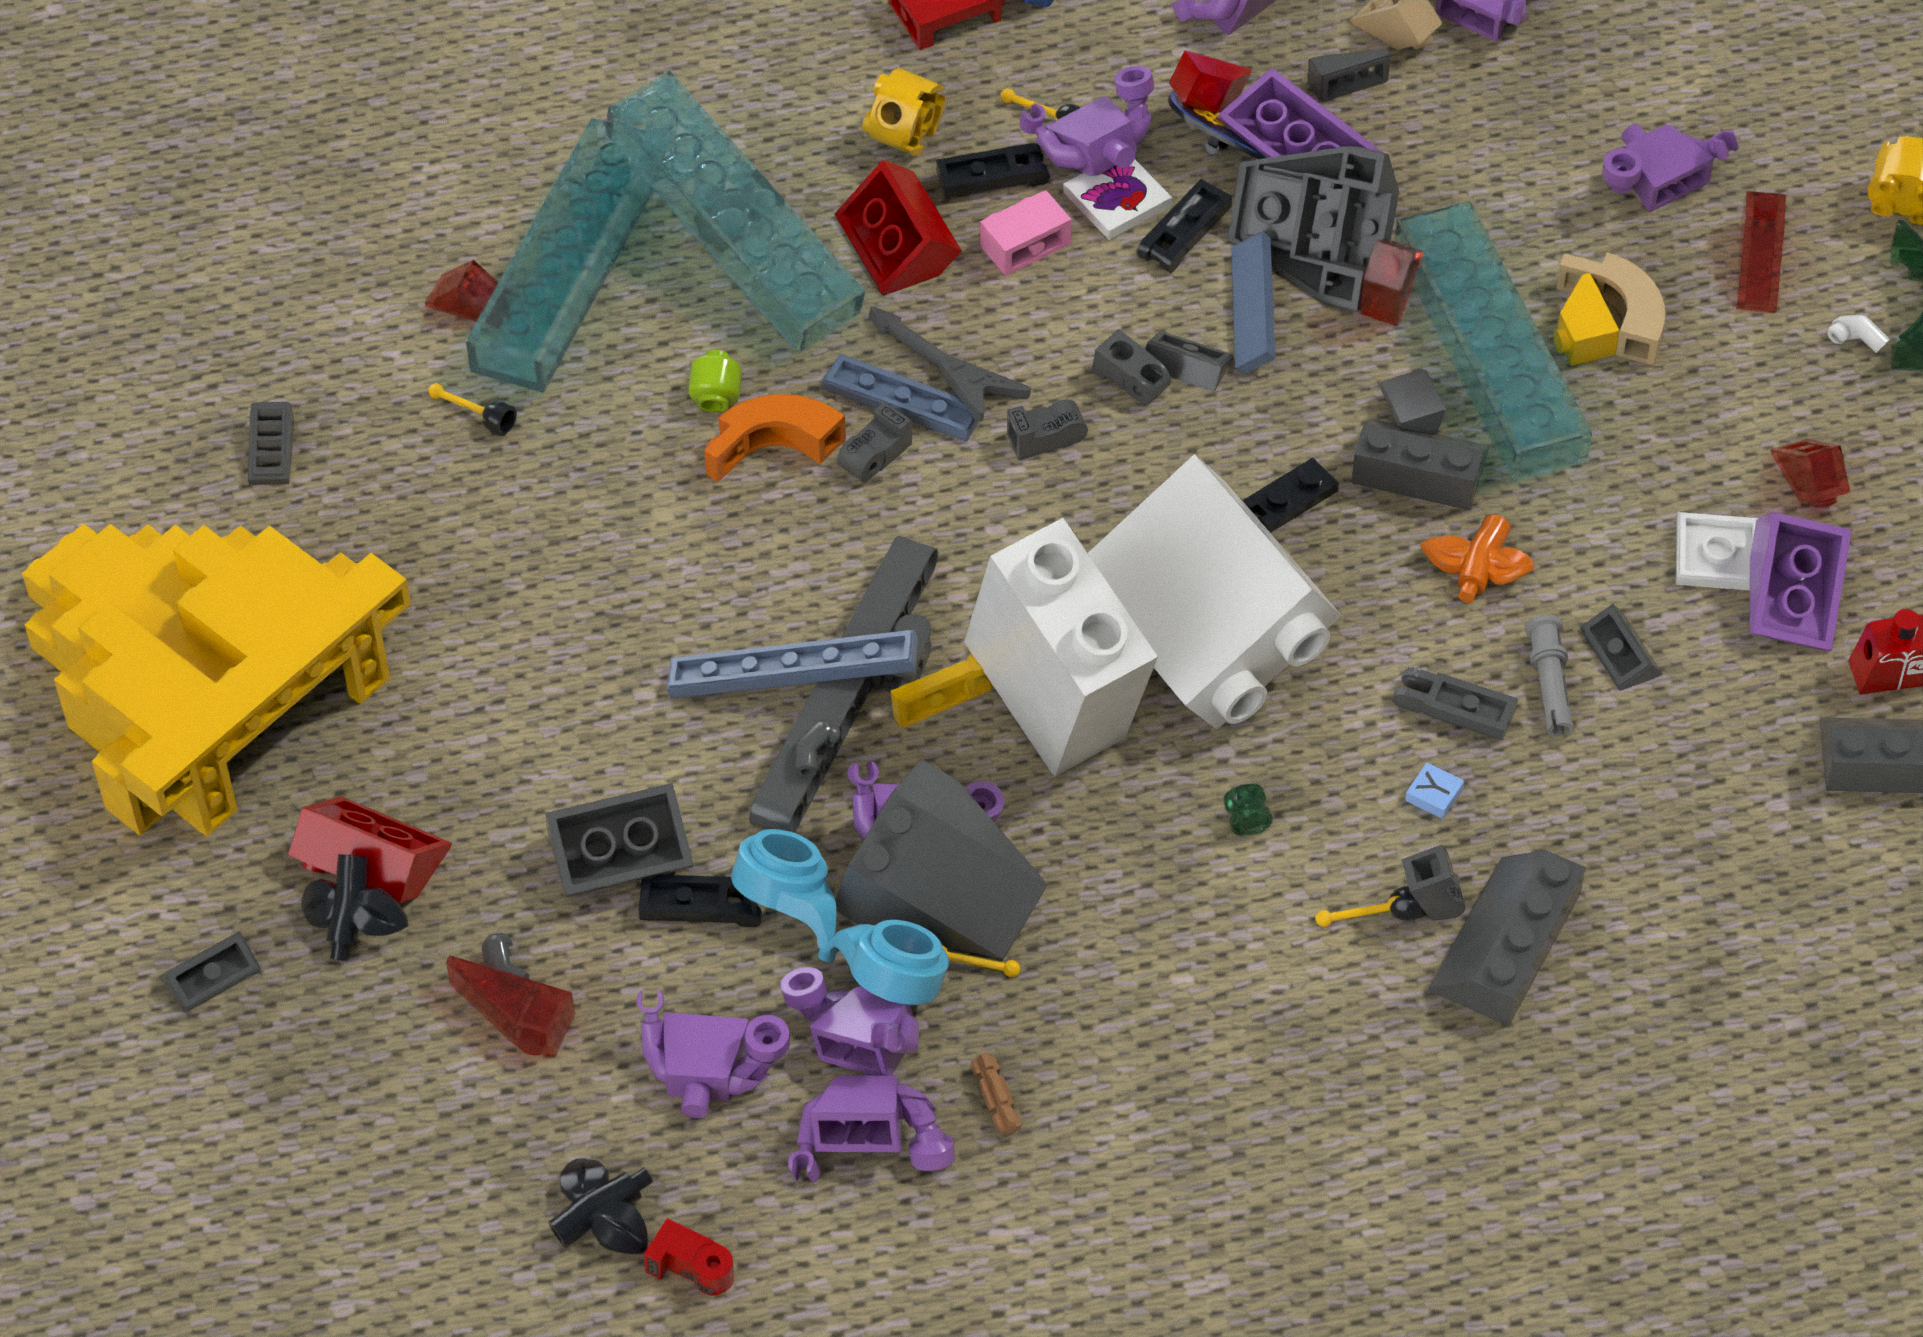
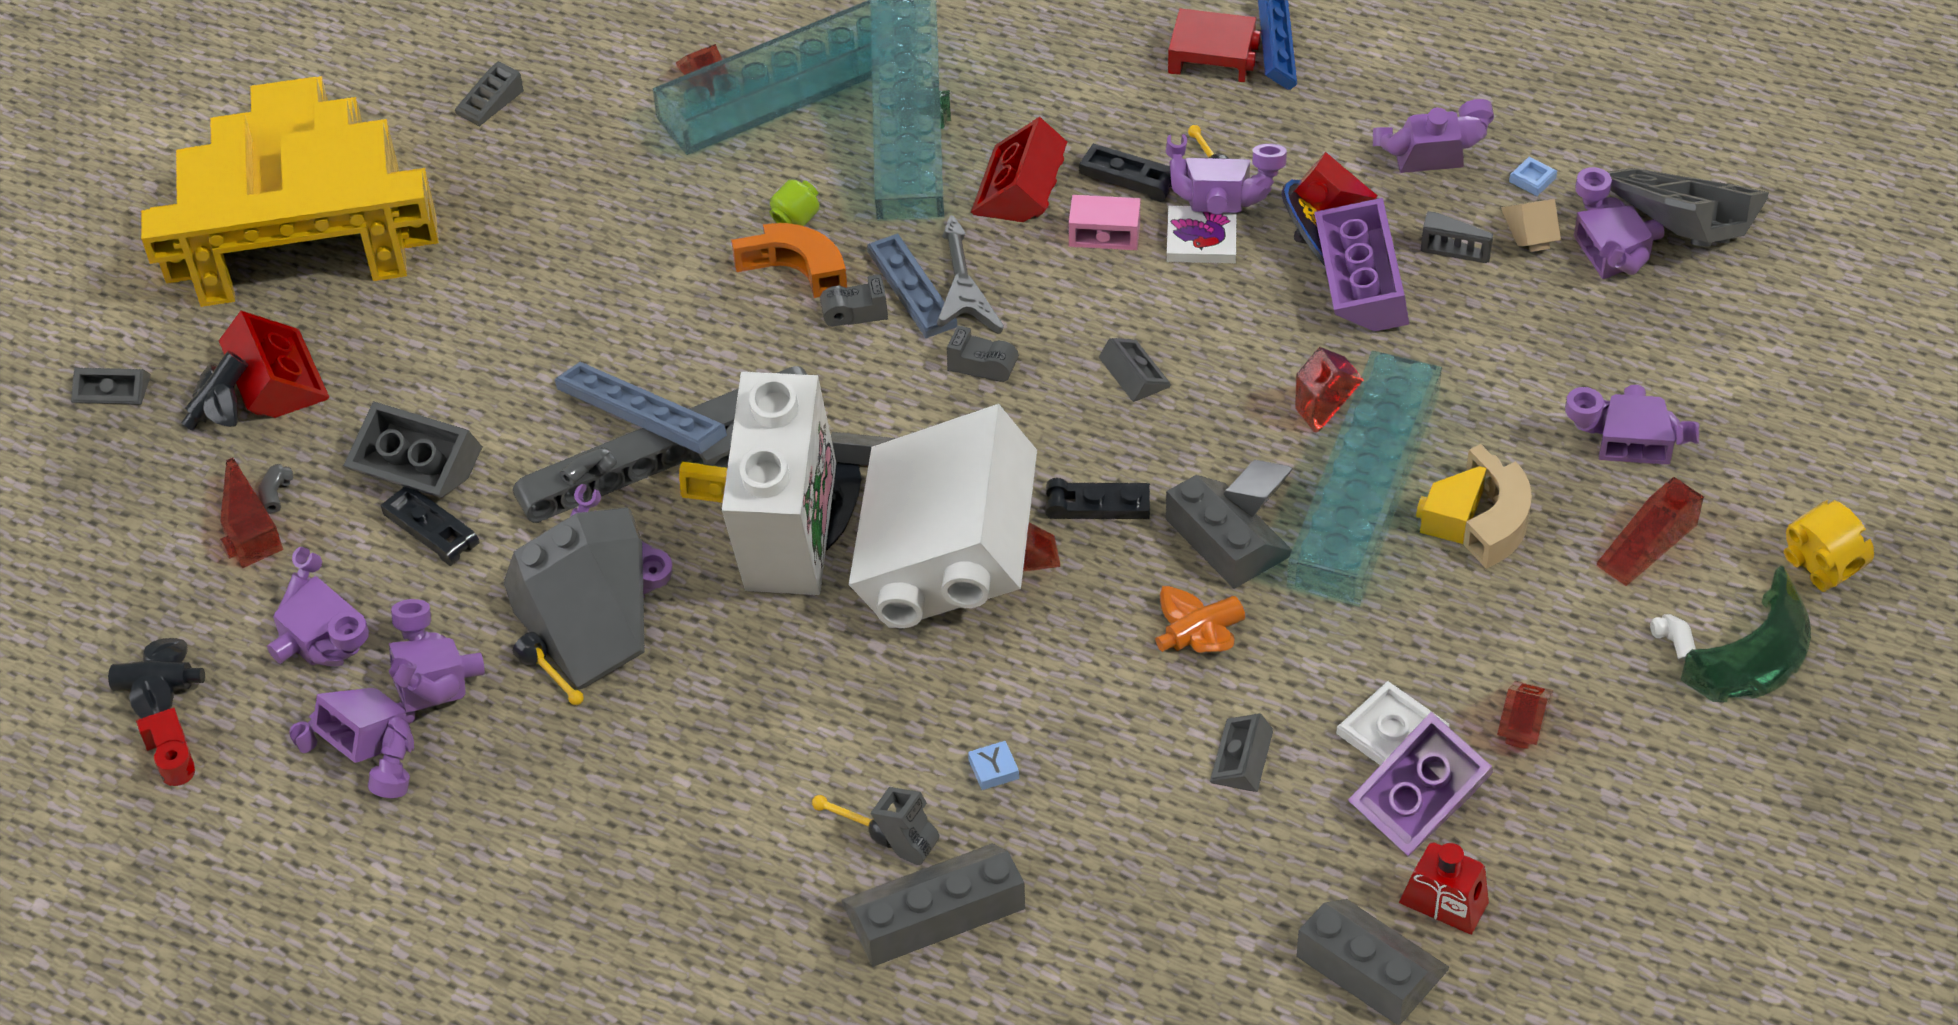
camera: 40 degrees right, 5 degrees down
(497, 416) = (638, 152): black hinge -> none
(887, 959) = (483, 559): medium azure piece -> none
(904, 110) = (1098, 98): yellow brick -> none
(996, 1094) = (472, 772): medium nougat axle -> none
(1130, 367) = (1082, 350): dark grey leg -> none
(1185, 225) = (1225, 278): black plate -> none
(1247, 809) = (841, 691): clear green wheel -> none
(1253, 303) = (1217, 355): sand blue tile -> none
(1320, 216) = (1313, 306): dark grey wedge -> none
(1456, 702) = (1075, 715): dark grey hinge -> none
(1549, 659) = (1173, 725): light grey pin -> none

